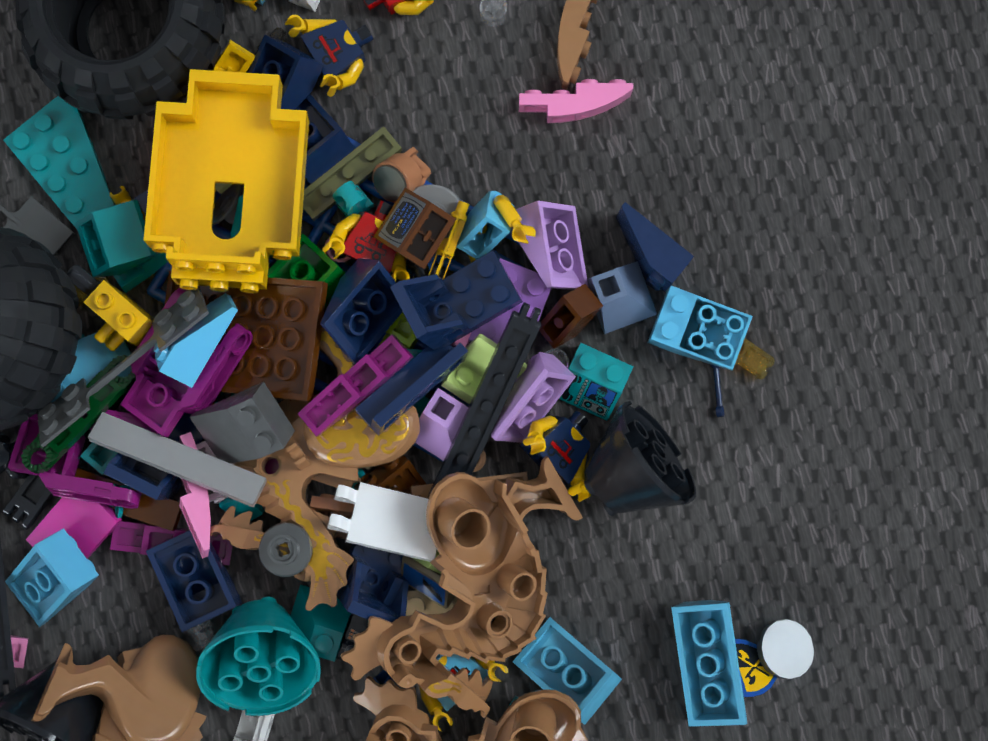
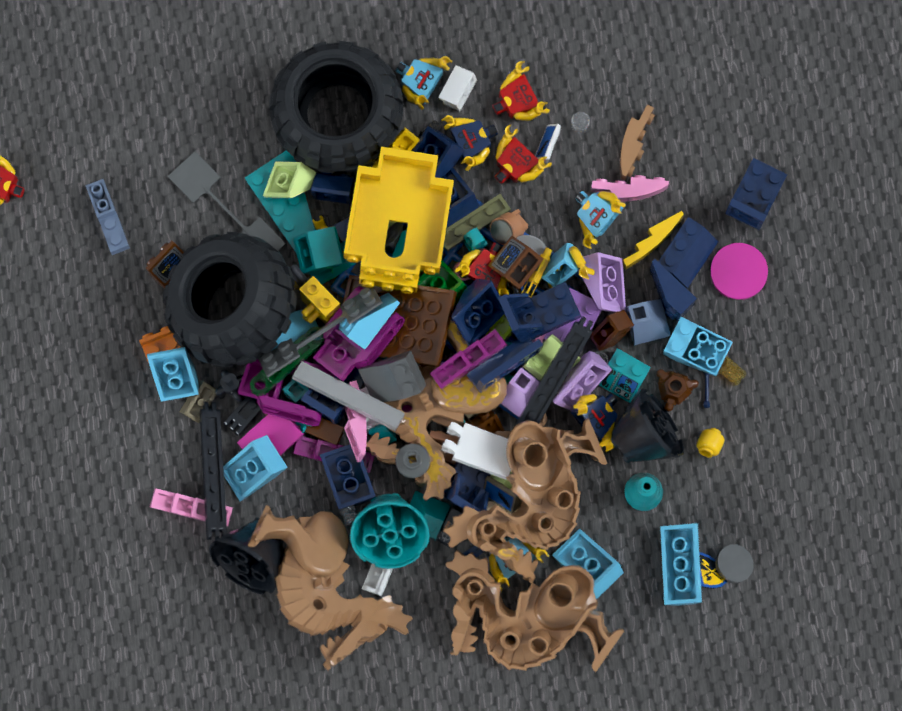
camera: 10 degrees right, 5 degrees down
(65, 135) = (289, 180): none -> yellowish green slope
(126, 141) = (333, 188): none -> dark blue slope
(404, 74) = (516, 160): none -> torso
(449, 45) = (548, 142): none -> slope
(531, 143) = (597, 214): none -> torso
(622, 167) = (657, 235): none -> yellow slope
(628, 550) = (639, 497): none -> teal cone
(670, 392) = (674, 388): none -> reddish brown rock
(671, 186) = (688, 252): none -> dark blue slope
(732, 469) = (710, 442): none -> yellow head
(748, 208) = (739, 271): none -> dark pink tile
(762, 92) = (756, 194): none -> dark blue bracket

